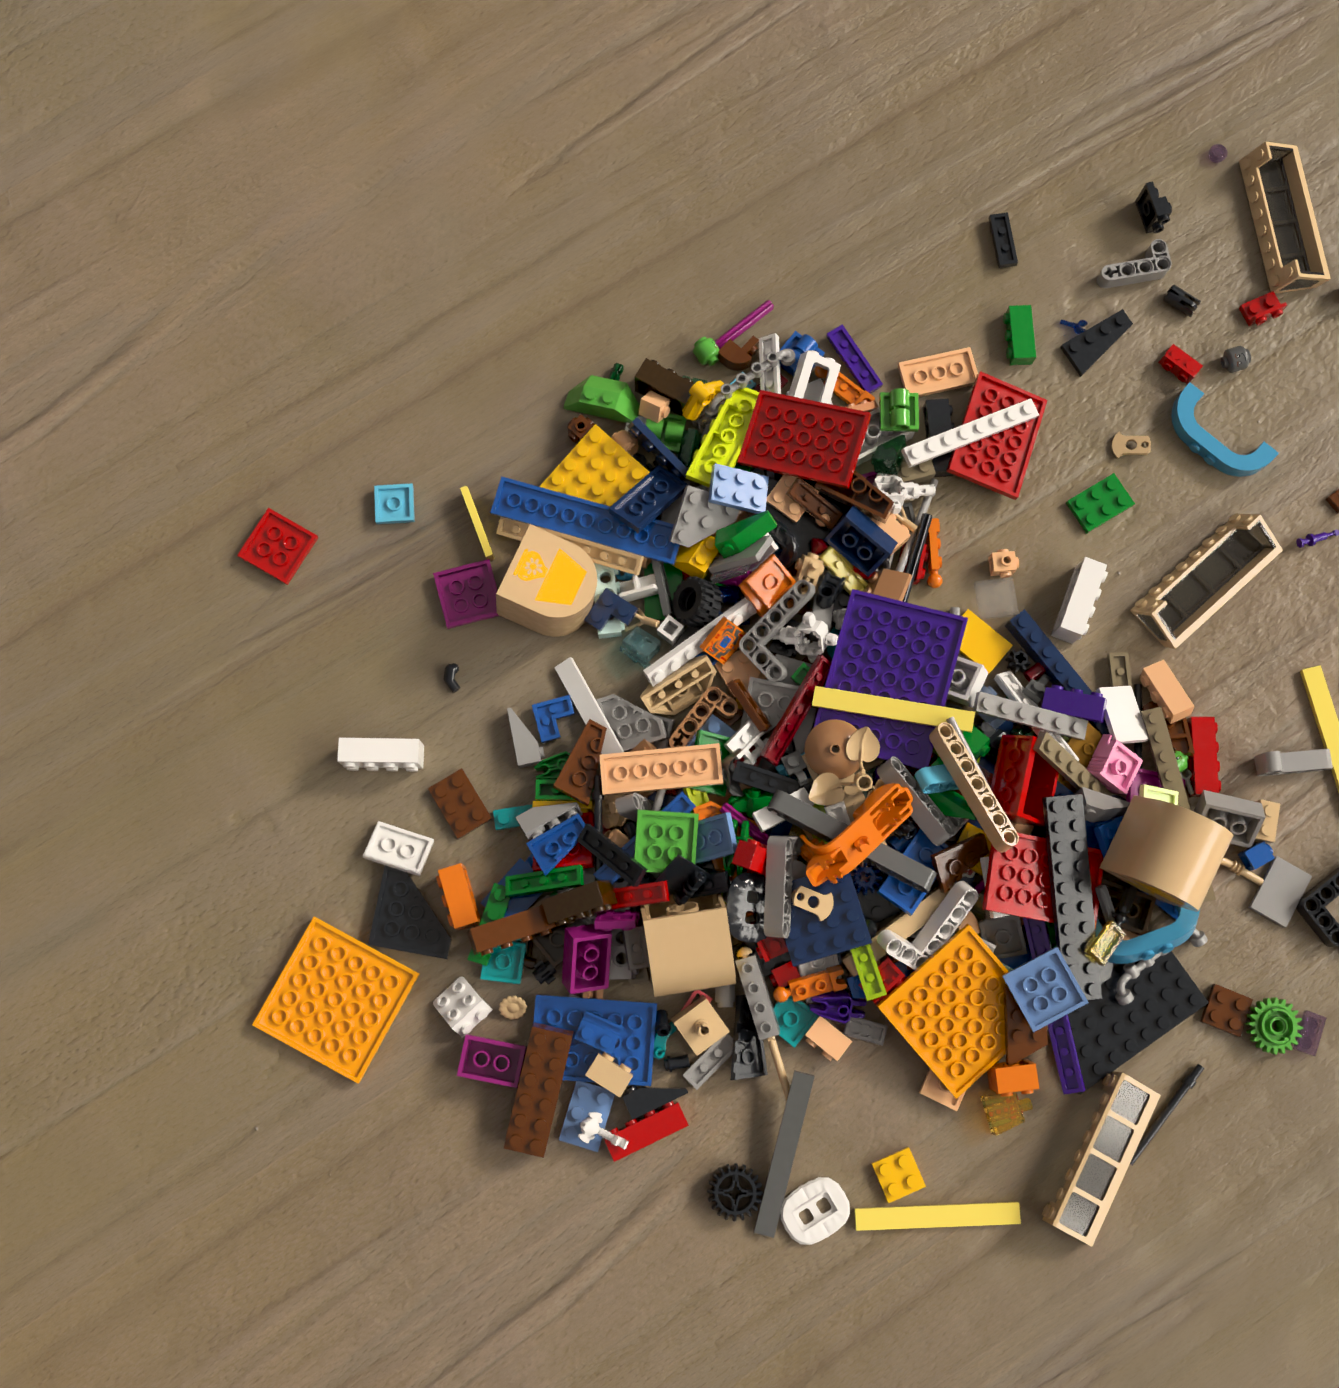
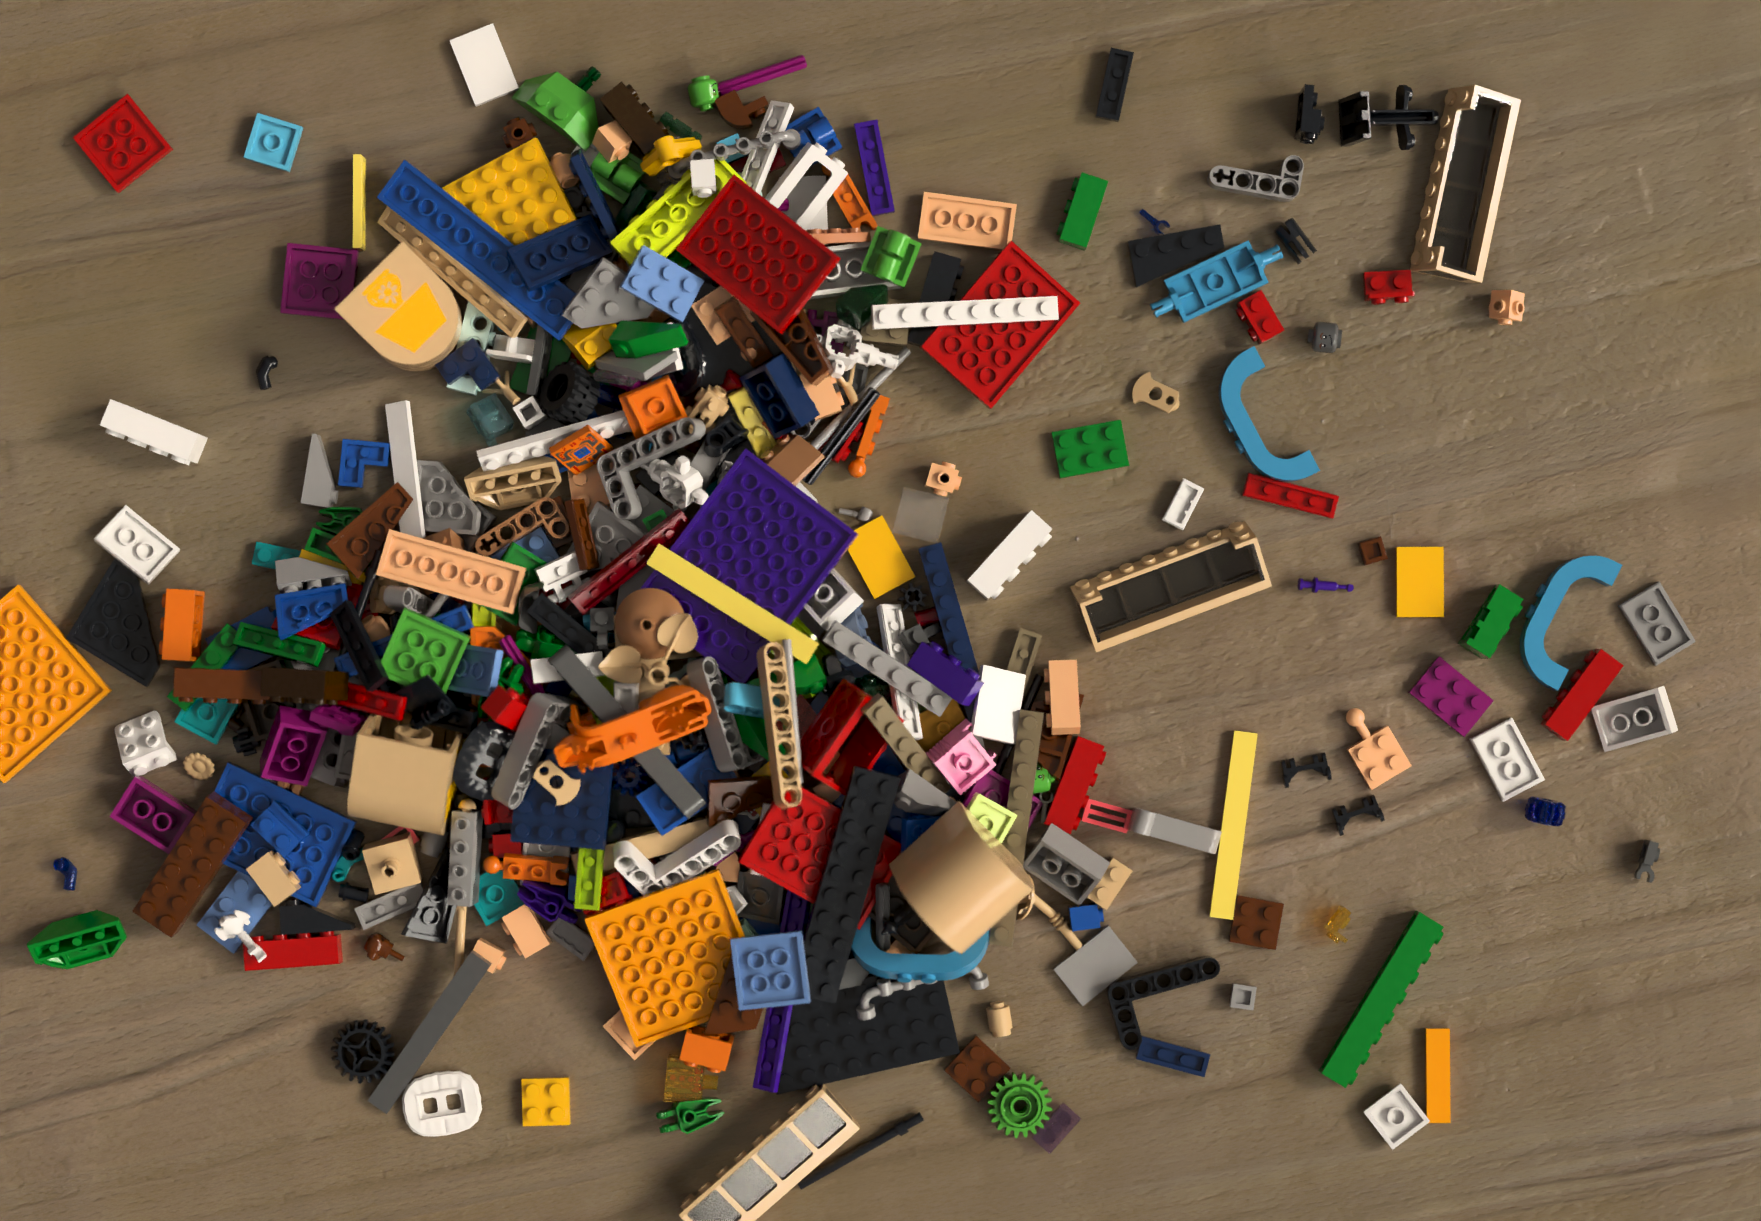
camera: 25 degrees right, 10 degrees up
(437, 1136) = (67, 868): none -> clear blue arm
(460, 803) = (223, 519): reddish brown plate -> none
(466, 1191) = (78, 940): none -> green wedge
(533, 391) = (484, 64): none -> white tile
(714, 1098) = (379, 946): none -> reddish brown piece
(737, 401) = (703, 177): none -> white brick
(806, 1067) = (491, 953): none -> light nougat brick
(937, 1216) = (570, 1159): light yellow tile -> none
(1021, 1138) = (690, 1115): none -> green hinge
(1106, 943) = (861, 947): clear yellow tile -> none
(1139, 349) = (1216, 281): none -> dark azure plate
(1187, 517) = (1182, 504): none -> white plate
(1190, 198) = (1358, 119): none -> black piece
(1218, 153) = (1425, 70): plate -> none
(1227, 963) = (999, 1019): none -> tan brick
(1238, 779) = (1087, 810): none -> coral tile
(1261, 482) = (1290, 495): none -> red tile

